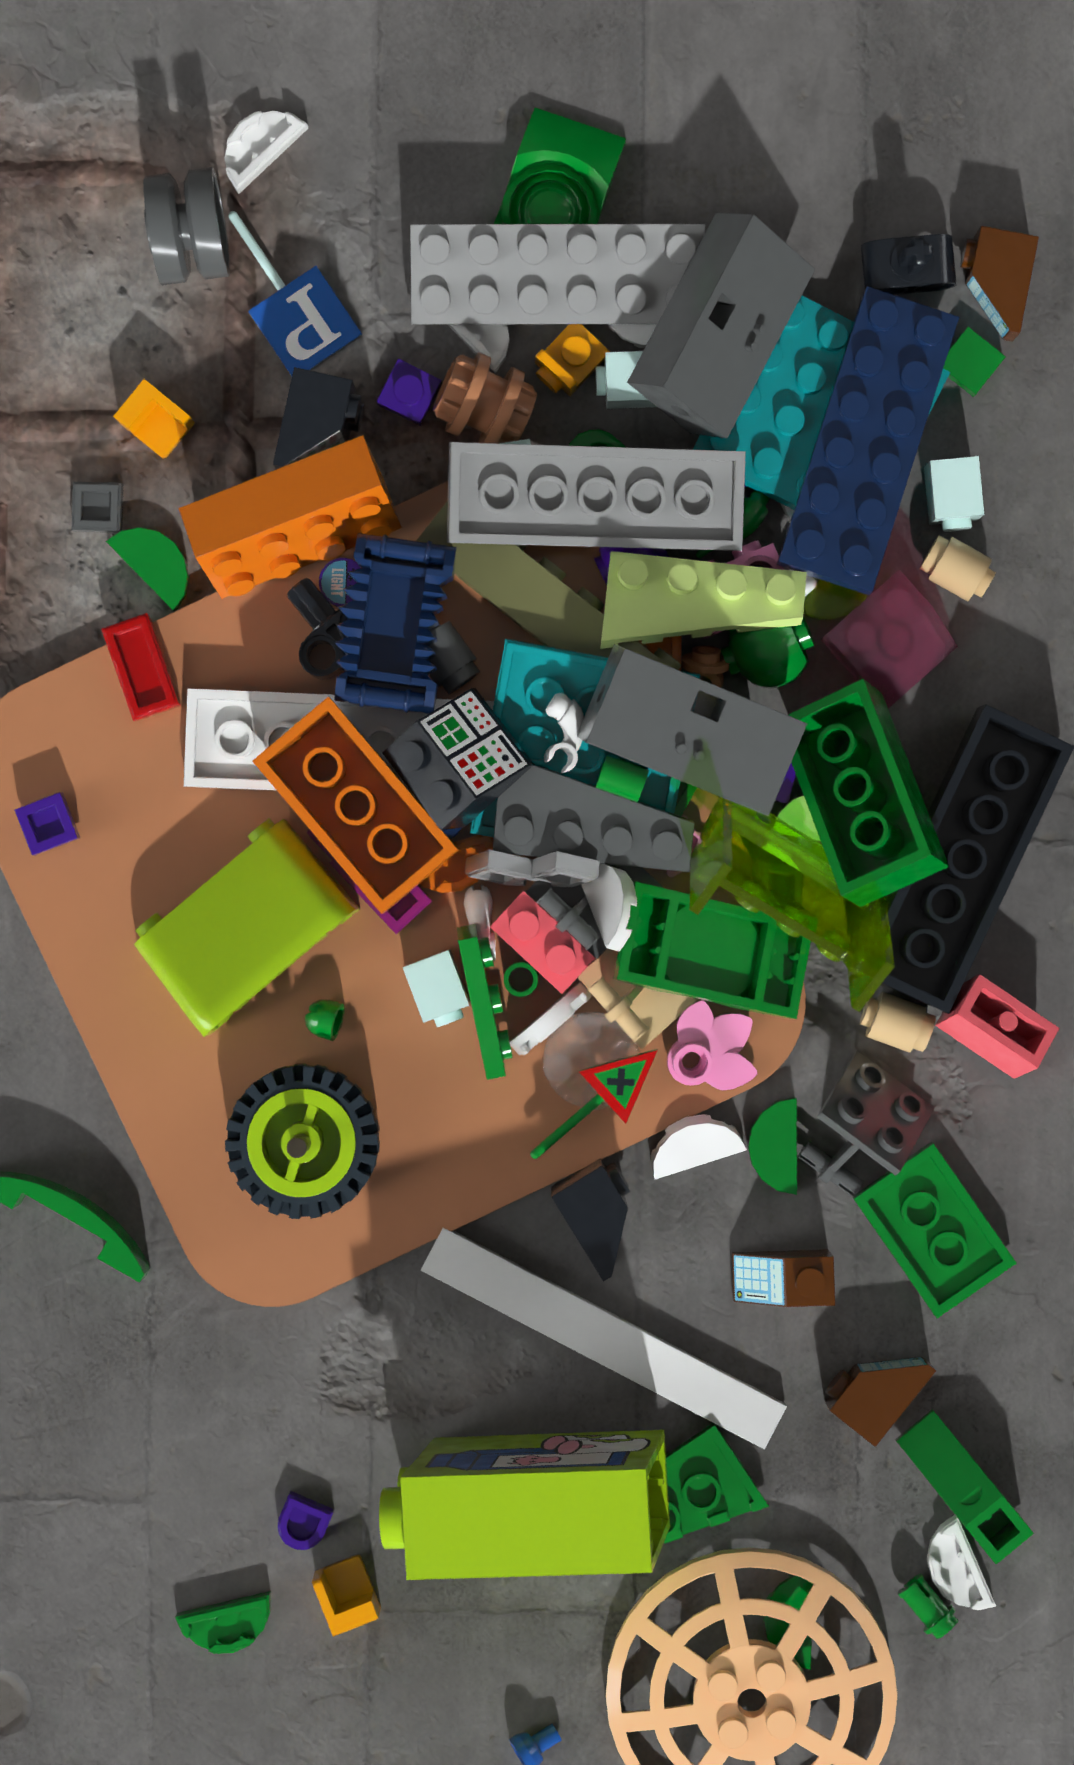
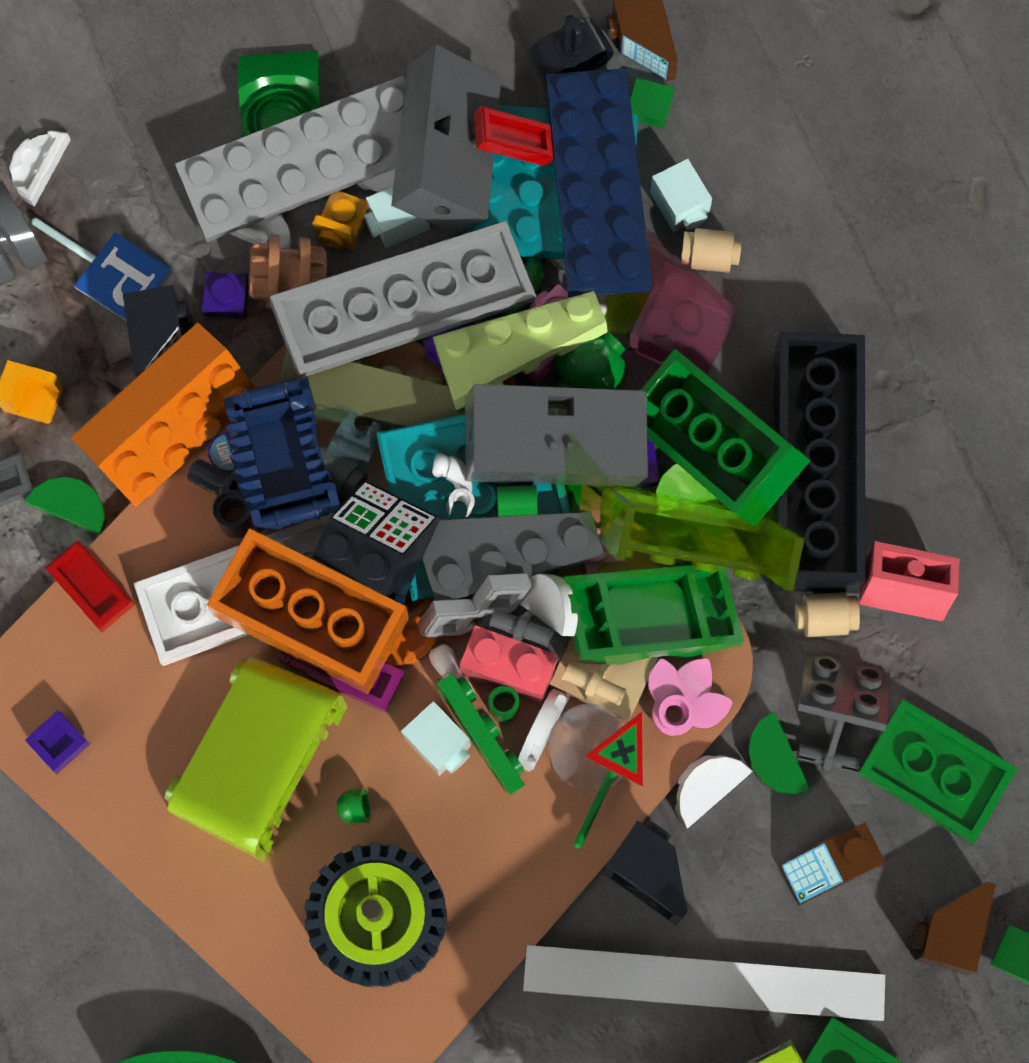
camera: 20 degrees left, 15 degrees down
(479, 631) = (352, 442): none -> clear light blue tile
(796, 353) = (513, 136): none -> red tile

